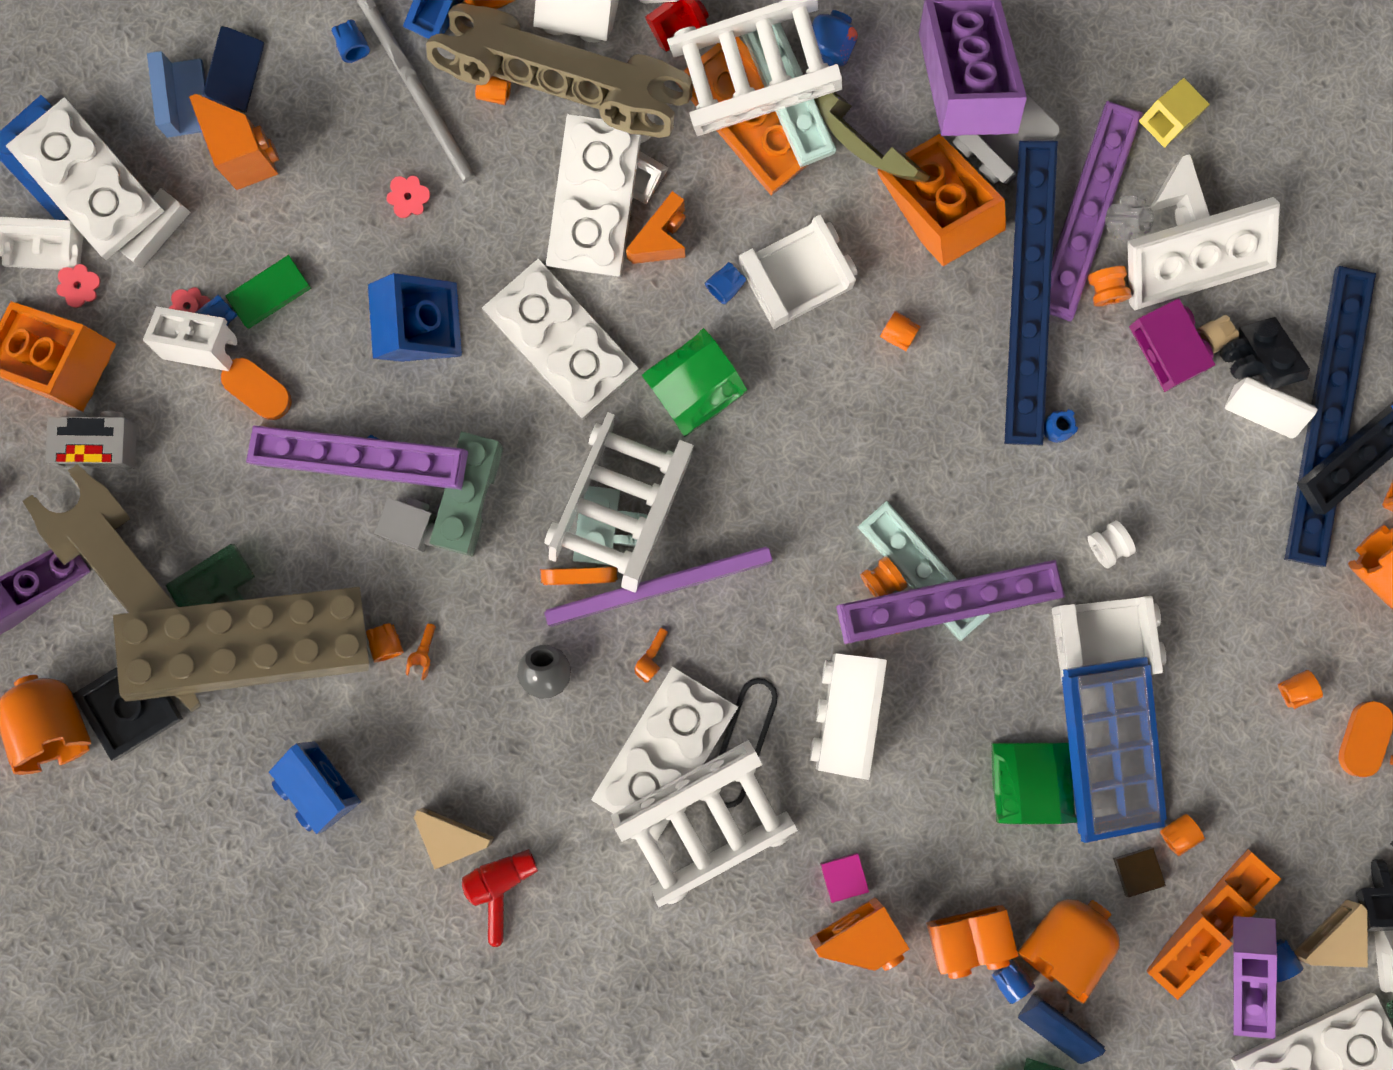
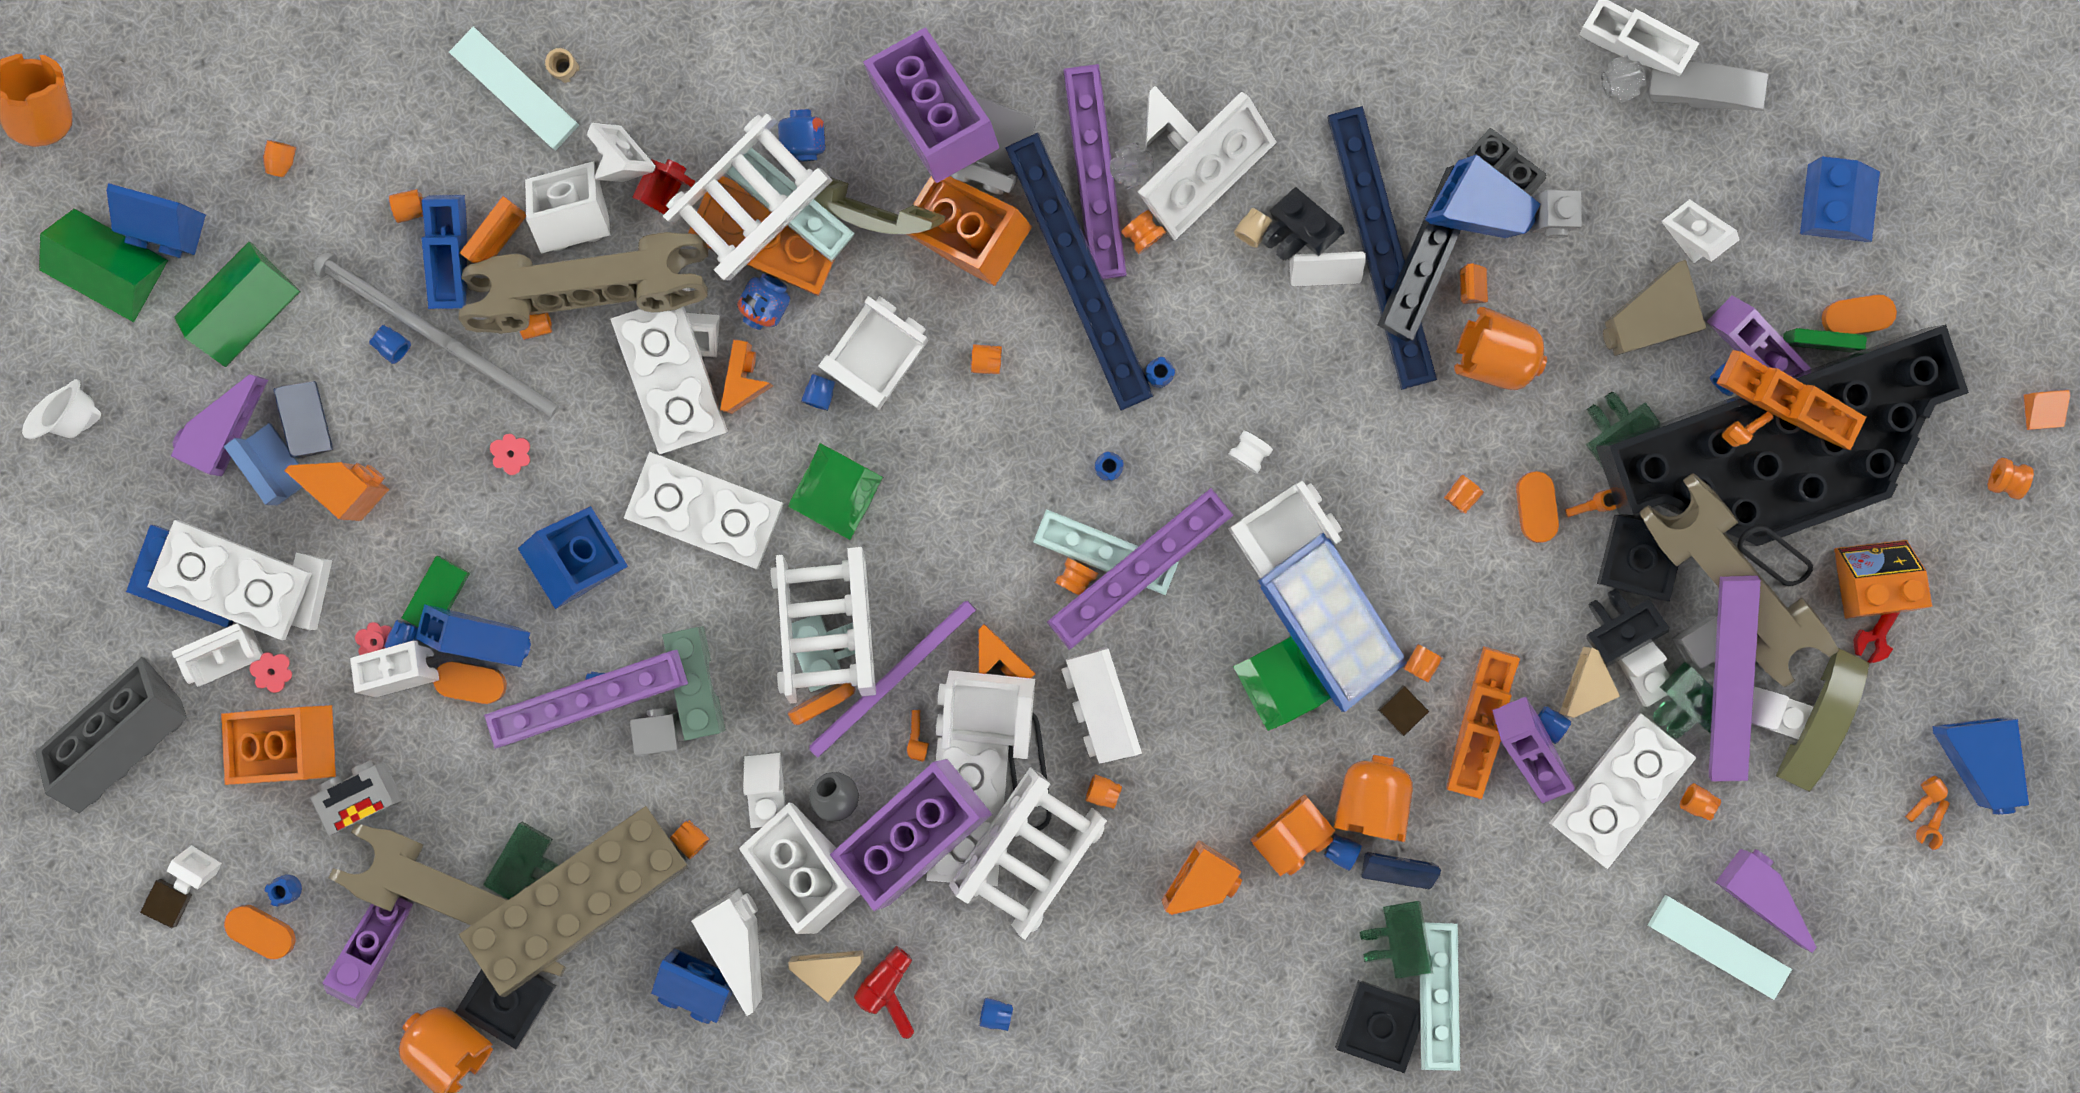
camera: 30 degrees left, 5 degrees up
(157, 30) = (205, 435): none -> medium lavender slope
(283, 345) = (473, 636): none -> blue slope
(374, 760) = (732, 939): none -> white slope
(421, 656) = (725, 831): orange hand -> none
(476, 728) = (798, 870): none -> white slope
(480, 632) = (763, 787): none -> white slope
(562, 749) = (882, 853): none -> medium lavender brick
(591, 968) = (995, 1014): none -> blue hose
(717, 173) = (763, 302): none -> blue head
(734, 662) = (986, 710): none -> white panel
(770, 608) = (994, 649): none -> orange slope
(806, 801) = (1103, 792): none -> orange hose
(844, 877) = (1165, 837): dark pink tile -> none
(960, 497) = (1108, 476): none -> blue hose
(1172, 344) = (1220, 255): magenta brick -> none
(1174, 112) = (1125, 52): light yellow brick -> none

